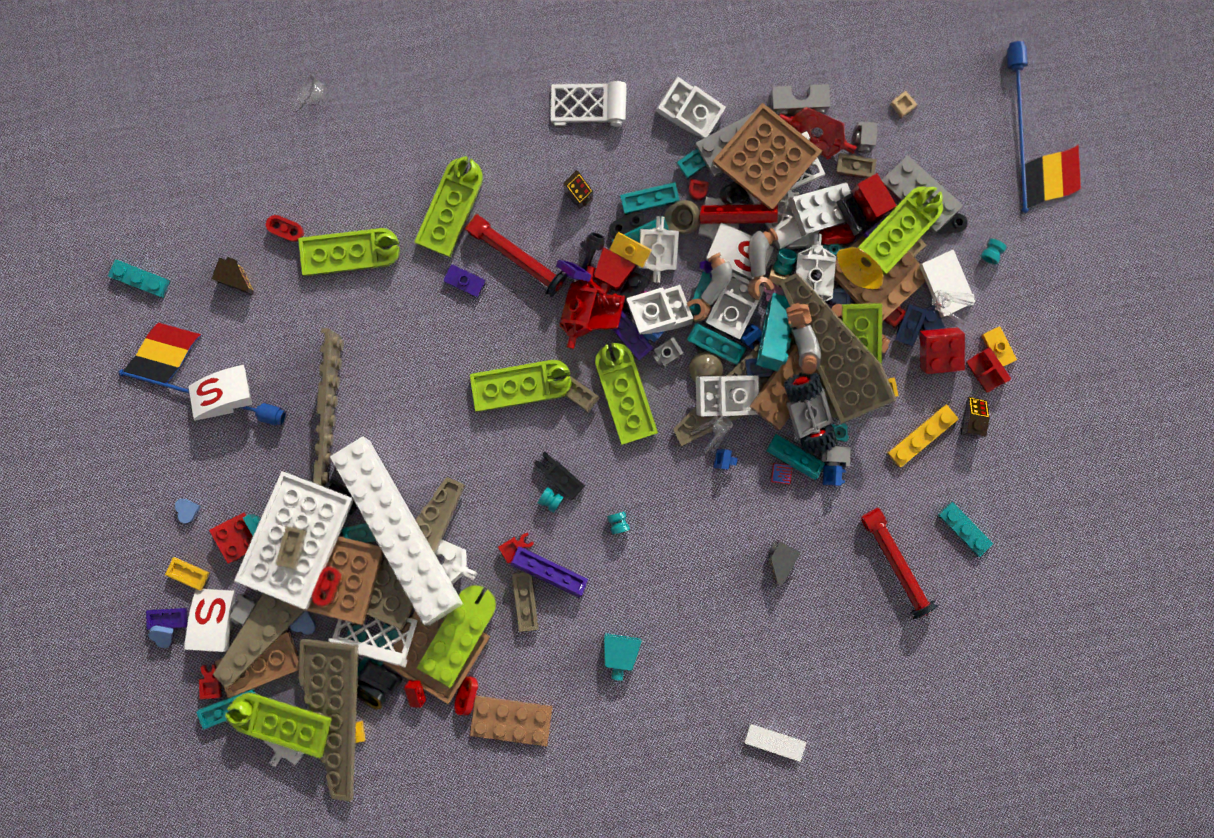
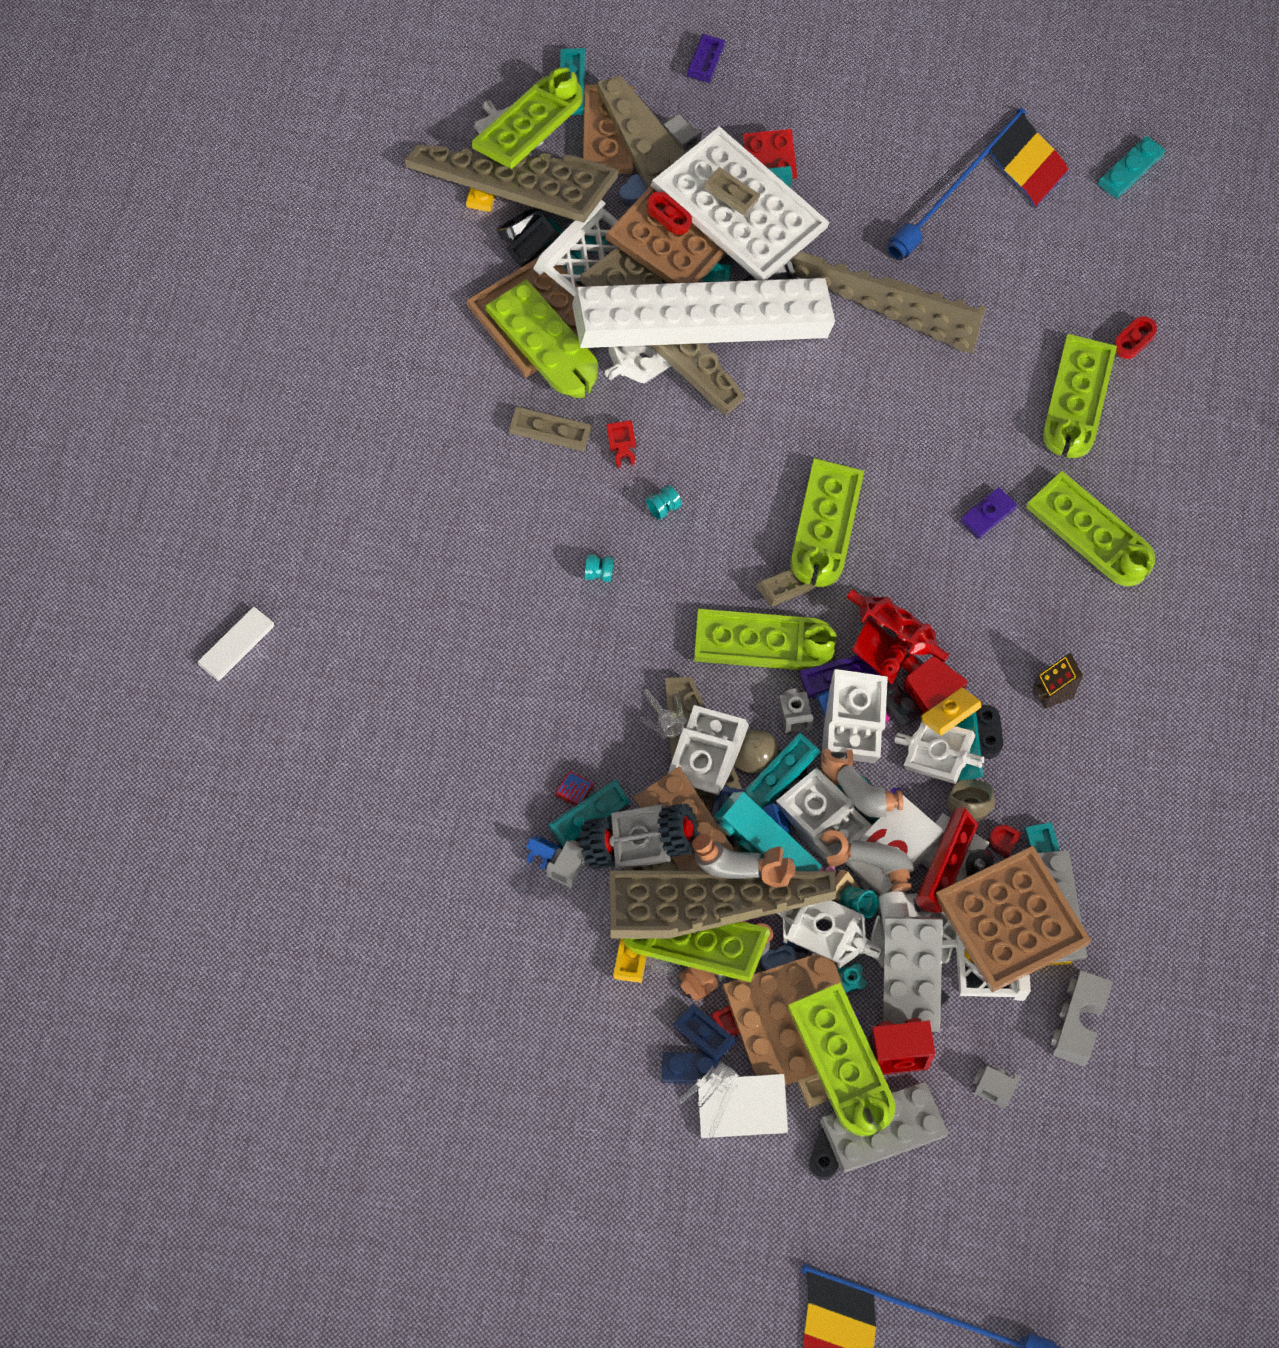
camera: 110 degrees right, 20 degrees down
(161, 636) = (688, 46): medium blue tile -> none
(186, 510) = (825, 121): medium blue tile -> none
(187, 573) = (749, 95): yellow plate -> none
(209, 685) = (607, 69): red plate -> none
(210, 620) = (679, 91): white slope -> none
(220, 393) = (952, 197): white slope -> none
(232, 275) = (1095, 261): dark brown slope -> none
(415, 693) = (496, 270): red piece -> none
(466, 696) = (462, 320): red plate -> none
(481, 229) = (1049, 552): red piece -> none
(511, 720) = (412, 363): medium nougat plate -> none
(549, 572) = (574, 465): dark purple plate -> none
(561, 477) = (688, 525): black hinge -> none
(573, 271) = (950, 633): dark purple plate -> none
(593, 242) = (976, 671): black piece -> none
(613, 103) = (1159, 773): white piece -> none
(620, 653) = (435, 508): teal torso -> none
(649, 198) = (1014, 771): teal plate -> none
(690, 108) = (1121, 870): white slope -> none
(724, 459) = (623, 724): blue tile -> none
(782, 561) = (460, 740): dark grey slope -> none
(833, 133) = (1042, 1006): red plate -> none
(837, 235) = (869, 987): red plate -> none
(843, 430) = (596, 875): teal plate -> none
(850, 264) = (813, 976): yellow piece -> none
(852, 214) = (891, 1008): black tile -> none
(855, 166) = (958, 1056): dark tan plate -> none
(875, 523) = (456, 875): red piece -> none
(903, 104) = (1025, 1163): tan tile -> none
(922, 436) = (544, 990): yellow plate -> none
(942, 350) = (651, 1052): red brick -> none
(965, 529) = (393, 992): teal plate -> none
(975, 418) = (539, 1066): dark brown slope -> none
(988, 370) = (597, 1114): red panel -> none
(993, 252) = (762, 1191): teal wheel -> none
(998, 343) = (623, 1144): yellow plate -> none

